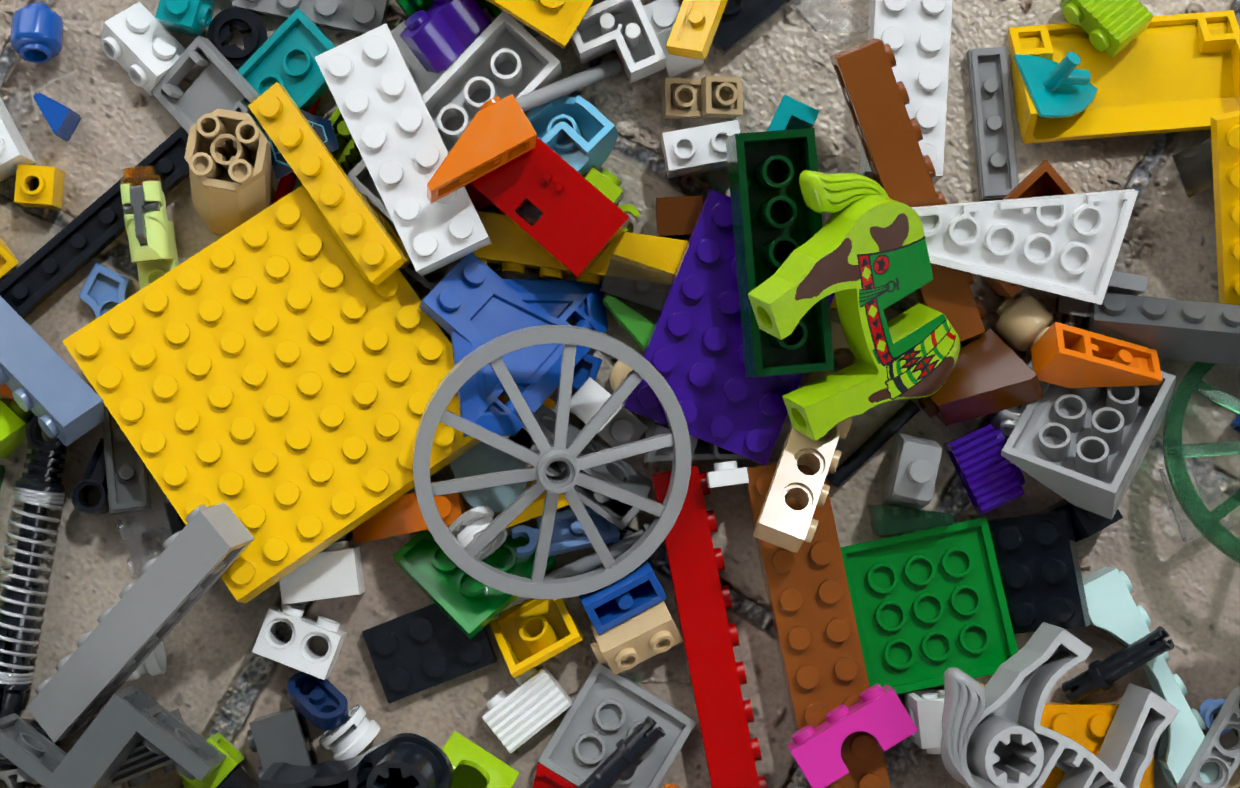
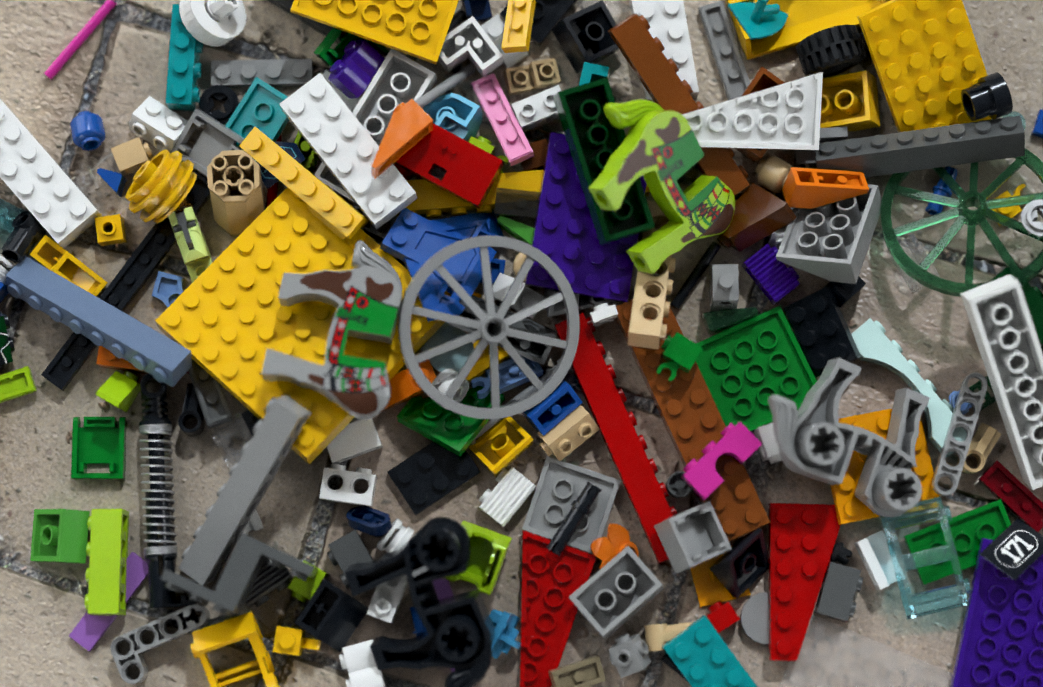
camera: 10 degrees left, 5 degrees down
(93, 85) = (131, 155): none -> tan brick
(118, 140) = (160, 186): none -> yellow wheel
(373, 398) = (367, 309): none -> animal
(644, 153) = (502, 119): none -> bright pink tile
(778, 754) = (676, 482): none -> dark grey wheel
(795, 55) = (586, 35): none -> black slope
(827, 565) = (680, 354): none -> green brick
(1104, 673) = (878, 388): black pin -> none
(1152, 159) = (831, 50): none -> black tyre
(1163, 241) = (850, 101): none -> yellow slope

